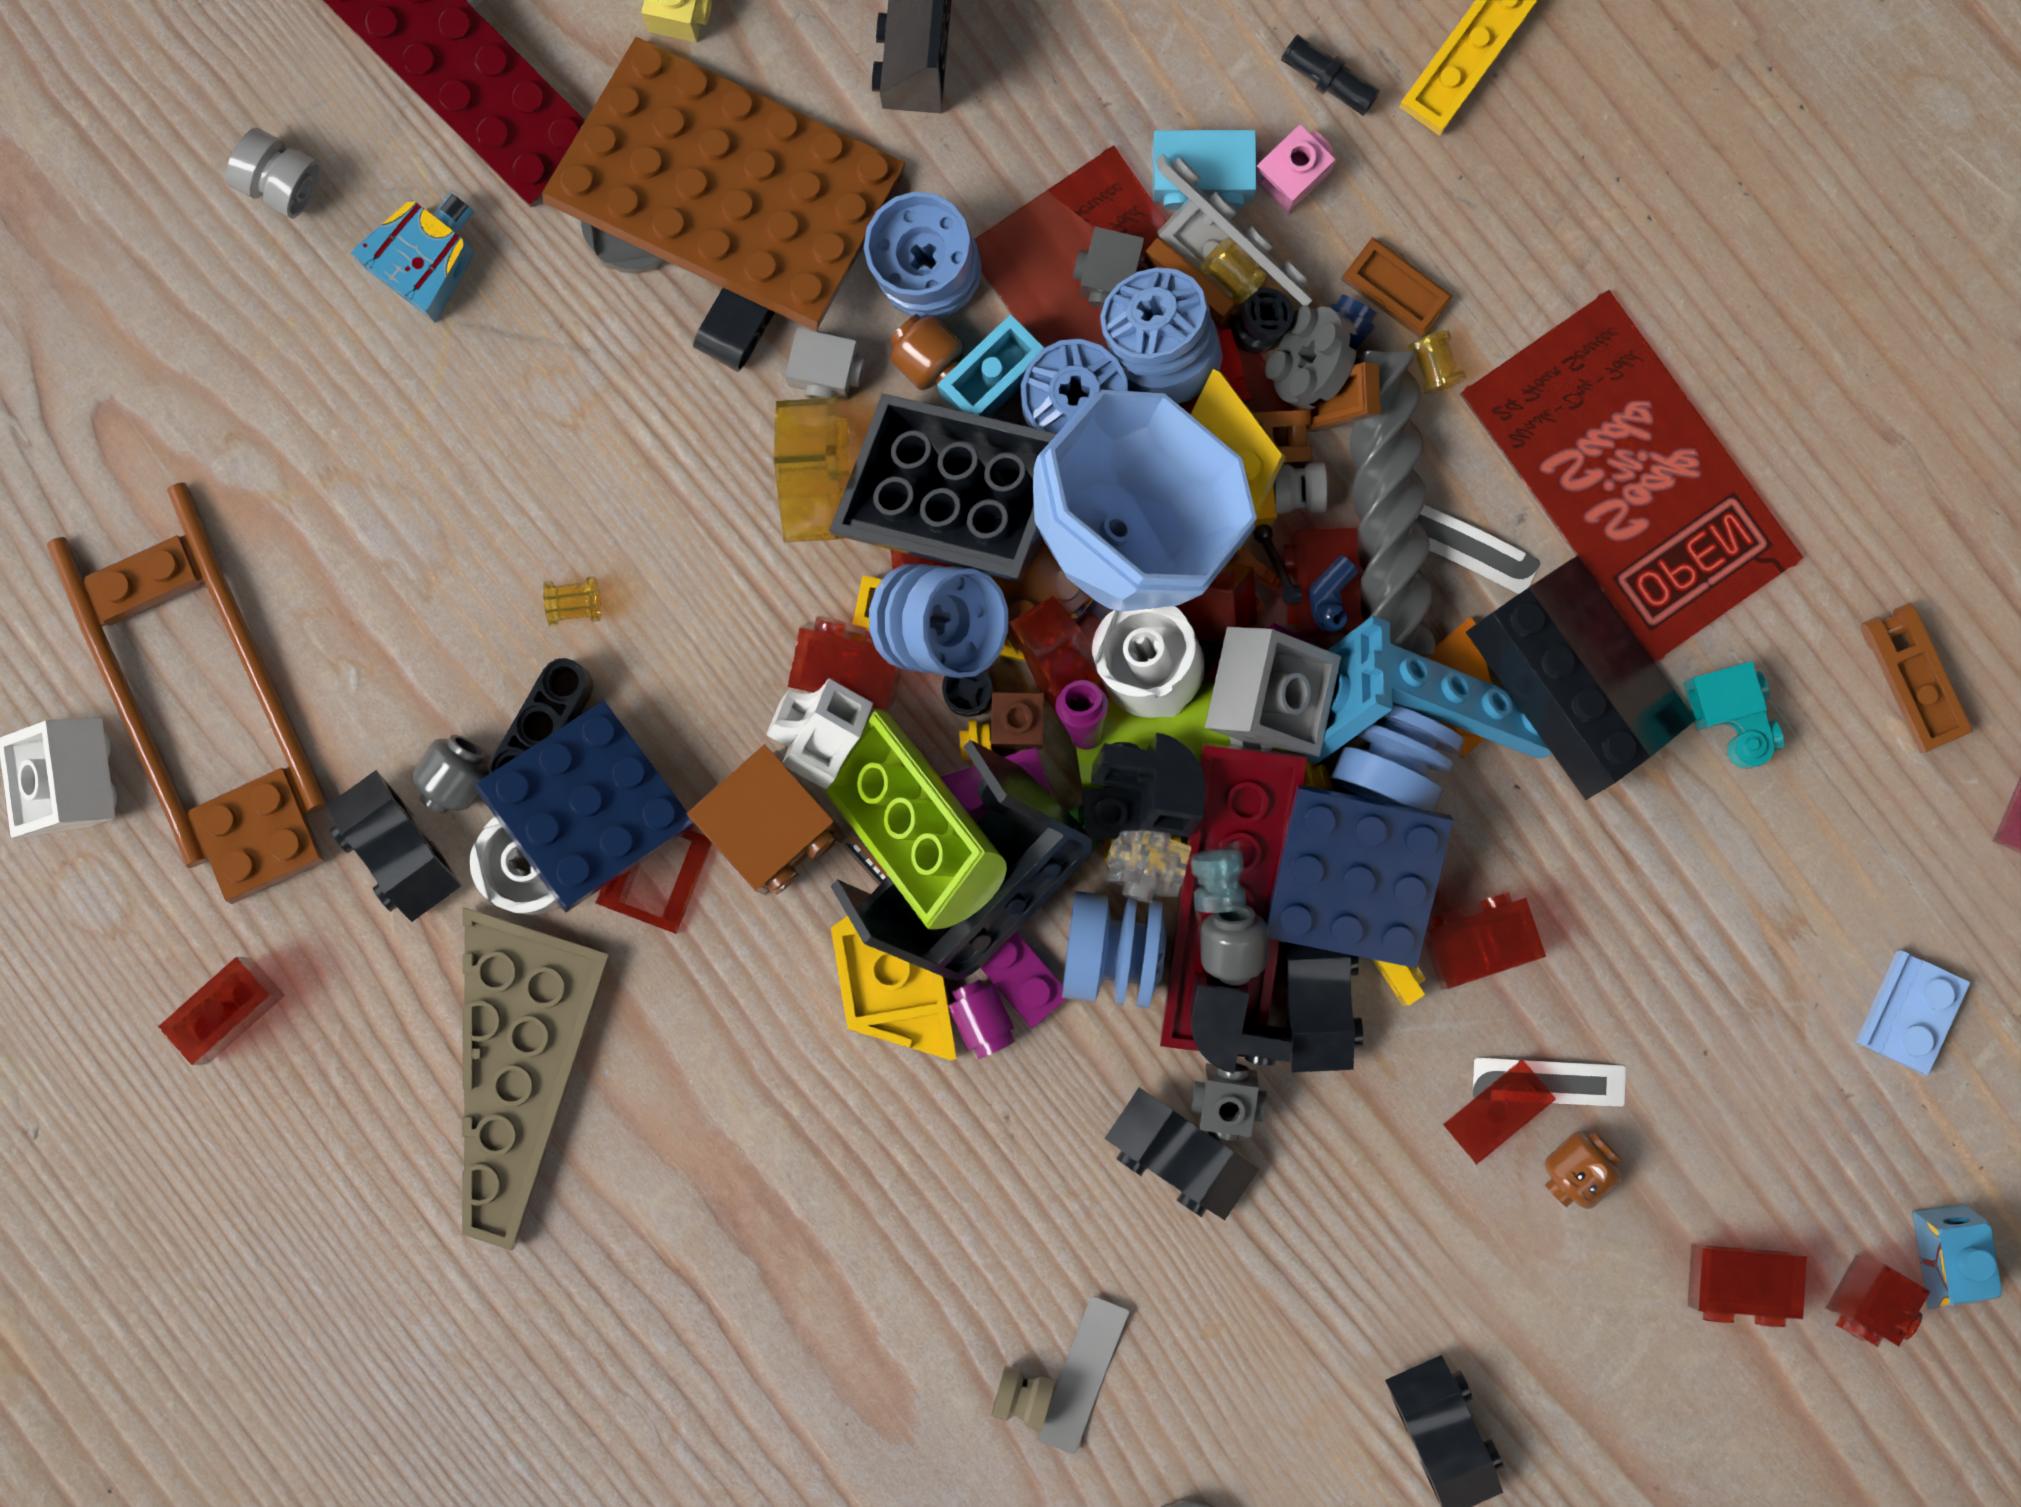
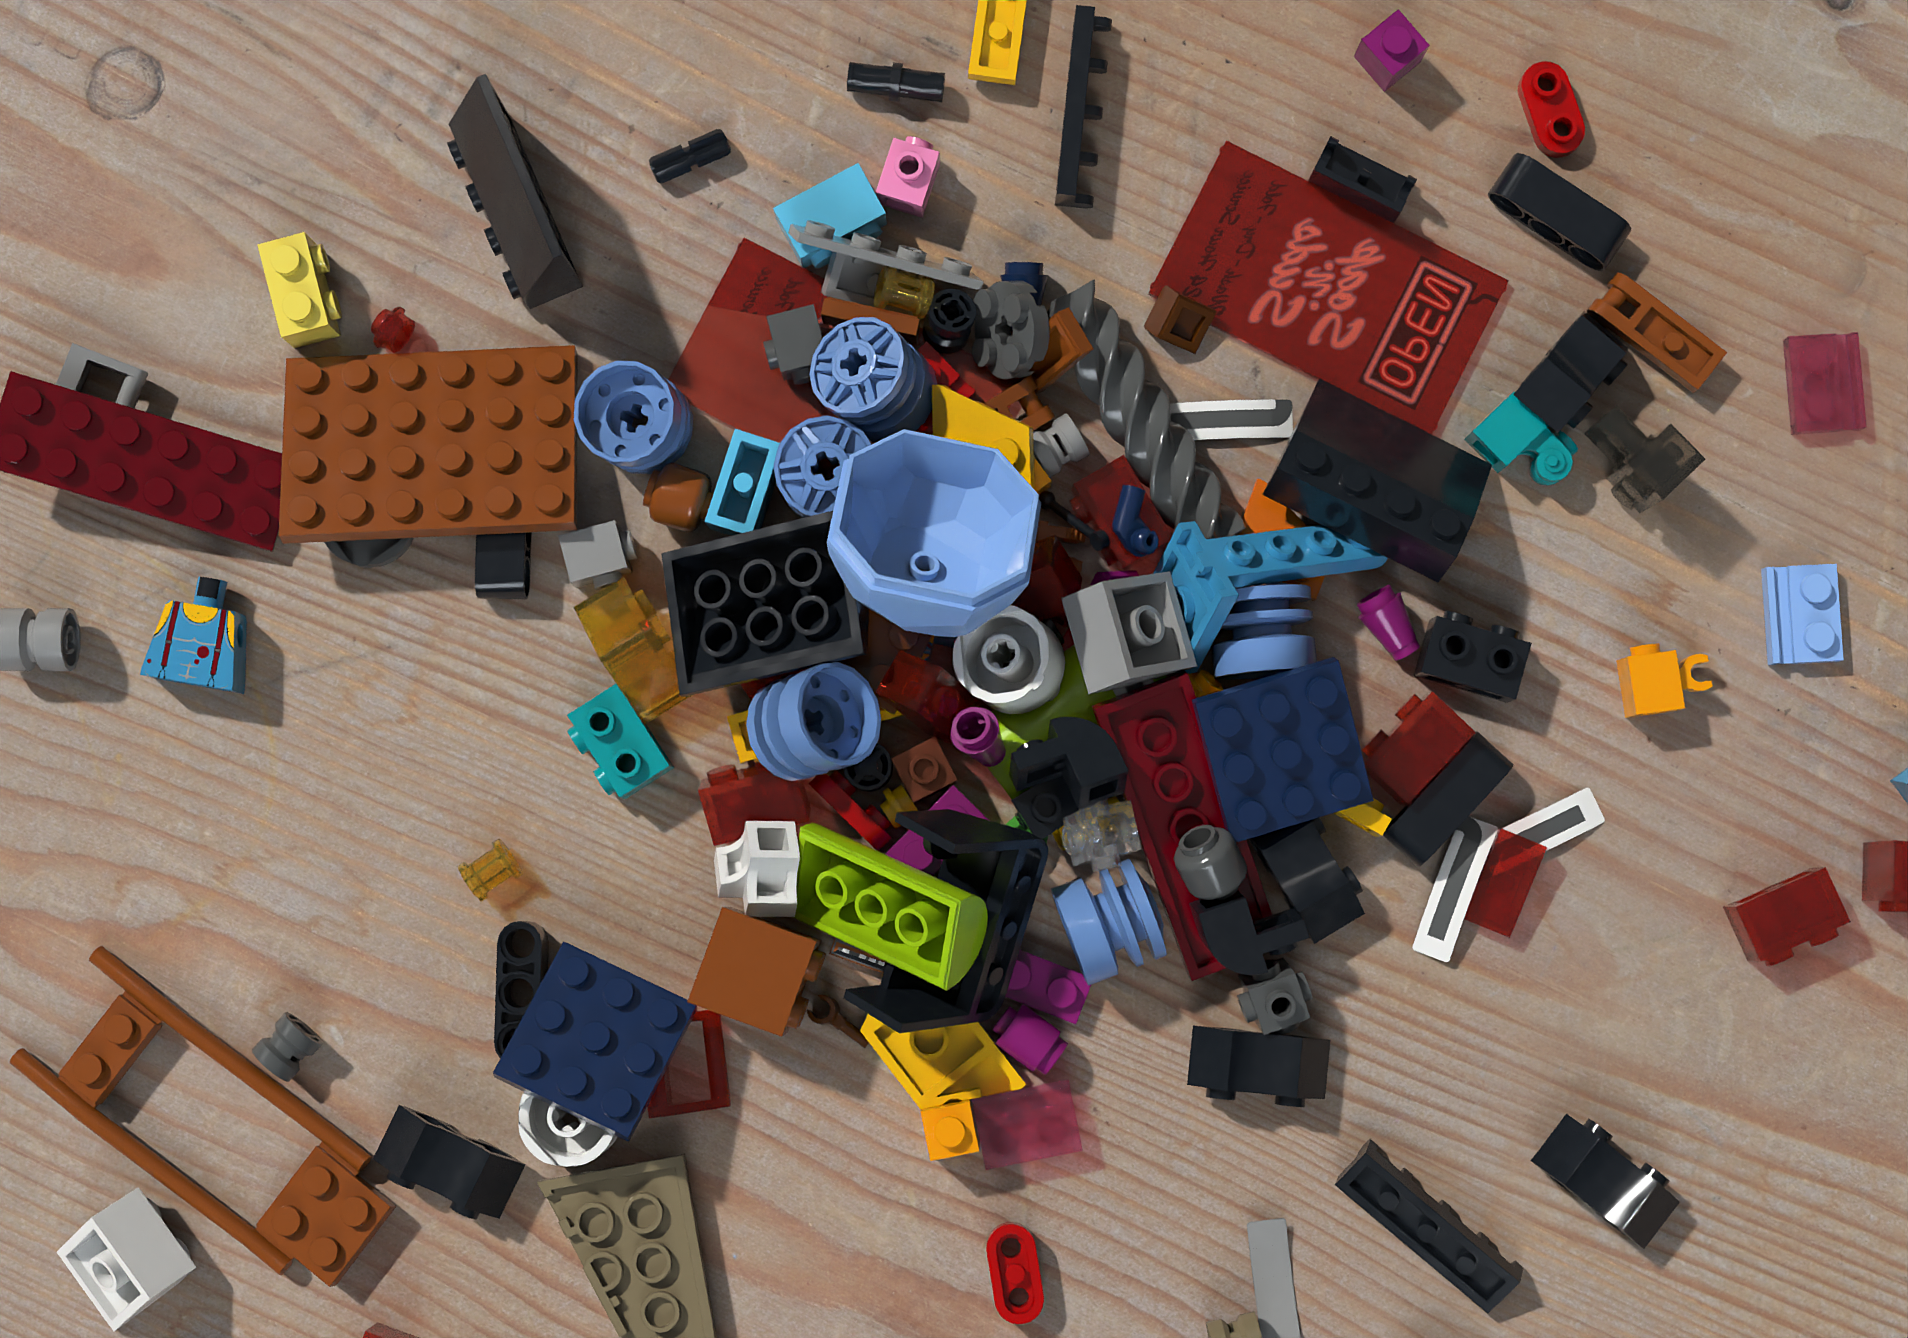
camera: 30 degrees left, 0 degrees up
(303, 663) = (287, 1046): none -> dark grey wheel
(450, 773) = (465, 1073): dark grey head -> none
(746, 60) = (392, 329): none -> clear red plate
(751, 547) = (619, 743): none -> teal brick
(815, 909) = (838, 1021): none -> reddish brown hand
(853, 1224) = (1015, 1272): none -> red plate
(864, 1062) = (950, 1130): none -> light orange brick
(937, 1096) = (1027, 1124): none -> clear pink plate
(939, 742) = (866, 822): none -> red plate
(1091, 43) = (679, 160): none -> black piece
(1218, 878) = (1167, 815): clear light blue wheel -> none
(1257, 1391) = (1429, 1228): none -> black hinge
(1396, 287) = (1047, 232): dark orange tile -> none
(1437, 362) = (1115, 278): clear yellow bush -> none
(1449, 1092) = (1454, 888): none -> white sticker
(1476, 432) = (1179, 319): none -> reddish brown slope
(1484, 187) = (1075, 108): none -> black hinge
(1487, 1006) = (1447, 799): none -> black beam
(1521, 813) = (1388, 621): none -> magenta cone
(1581, 887) = (1473, 657): none -> black brick
(1583, 1170) = (1601, 894): dark orange head -> none
(1715, 392) = (1362, 180): none -> black hinge
(1740, 1000) = (1654, 681): none -> light orange brick
(1808, 286) = (1391, 50): none -> magenta brick
(1816, 672) = (1572, 372): none -> black brick
(1837, 792) = (1643, 466): none -> clear smoke brick
(1885, 518) = (1559, 212): none -> black beam
(1929, 417) = (1551, 107): none -> red plate

